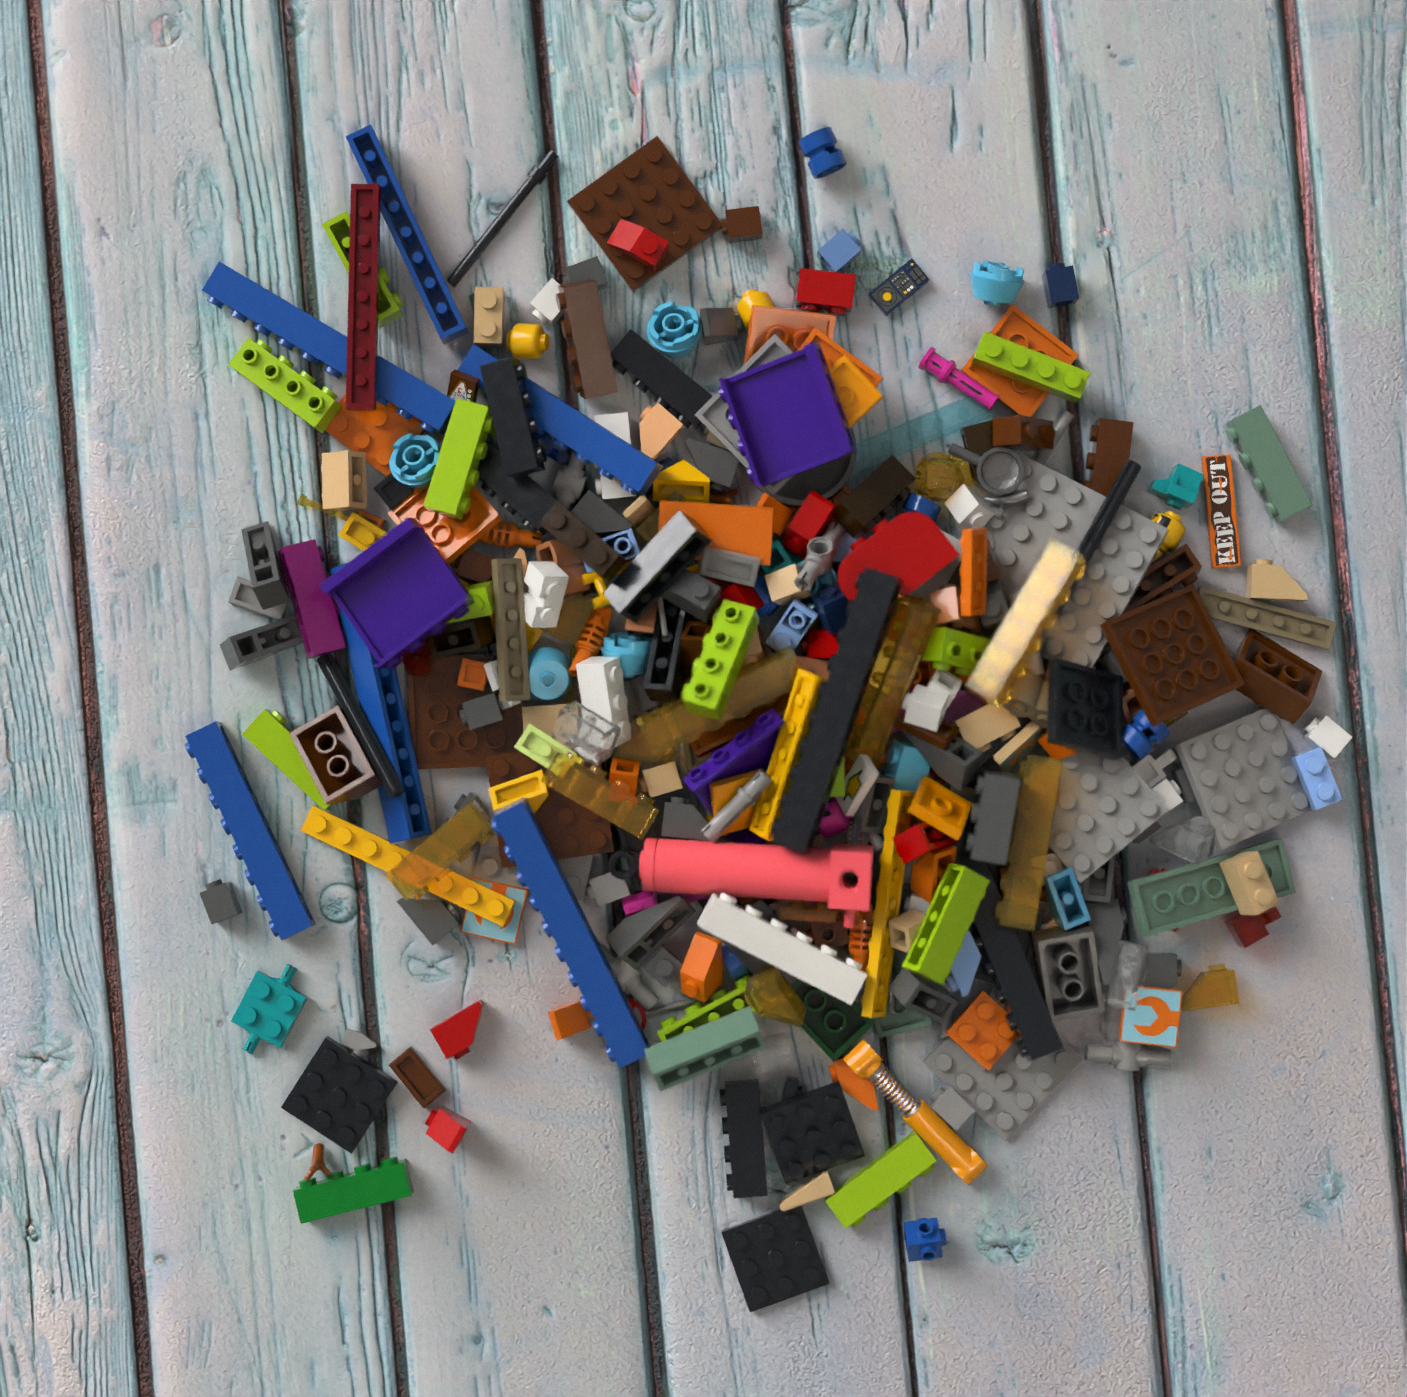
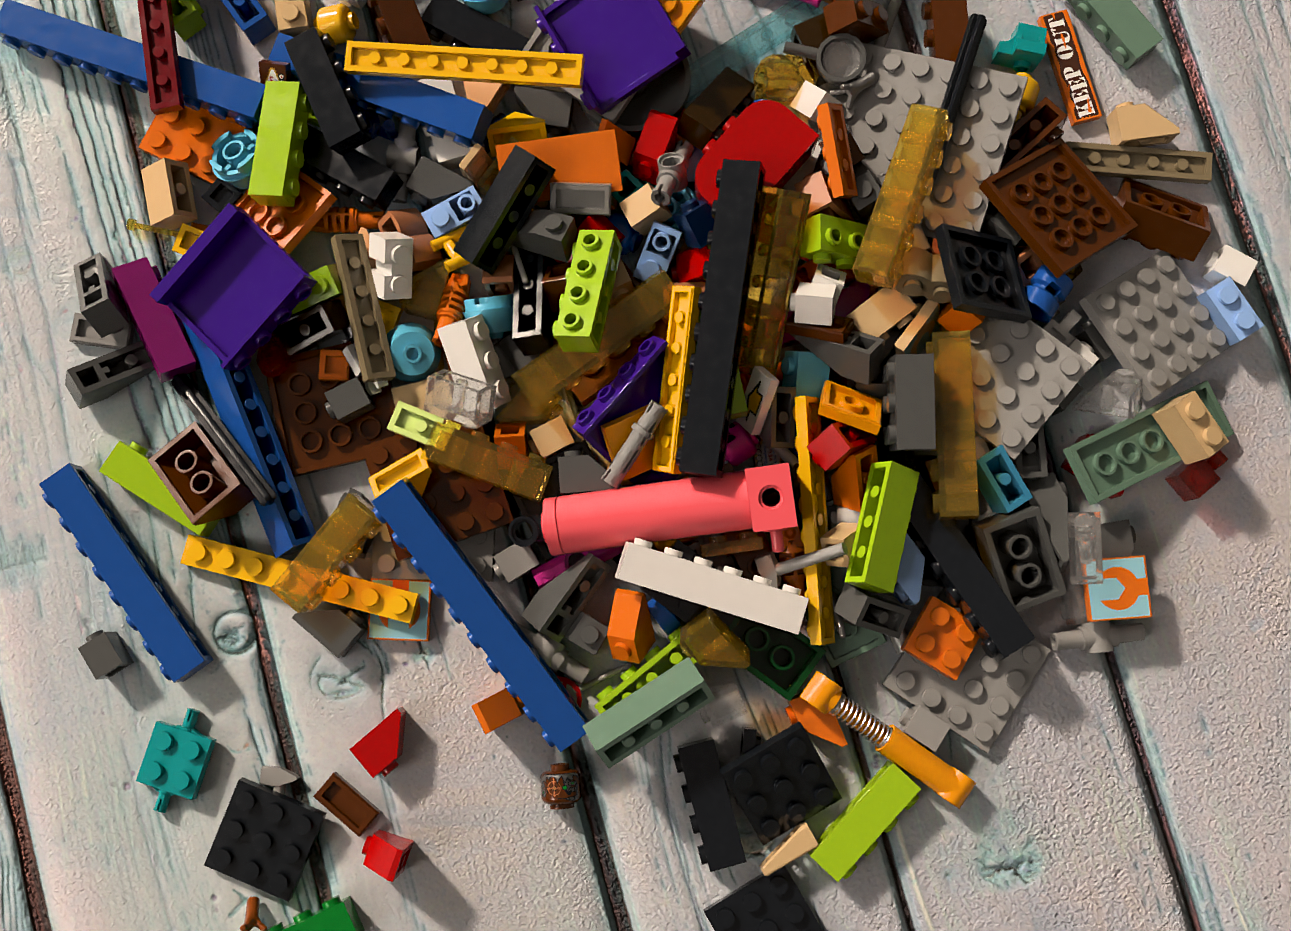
camera: 10 degrees left, 5 degrees down
(285, 385) = (94, 109): lime brick -> none
(474, 566) = (315, 254): reddish brown brick -> none
(583, 542) = (423, 202): dark brown brick -> none
(613, 1098) = (560, 786): none -> reddish brown head
(645, 421) = (465, 64): none -> yellow plate
(840, 941) = (771, 569): none -> light grey piece
(924, 1239) = (924, 877): blue brick -> none
(1211, 989) = (1172, 549): clear yellow slope -> none

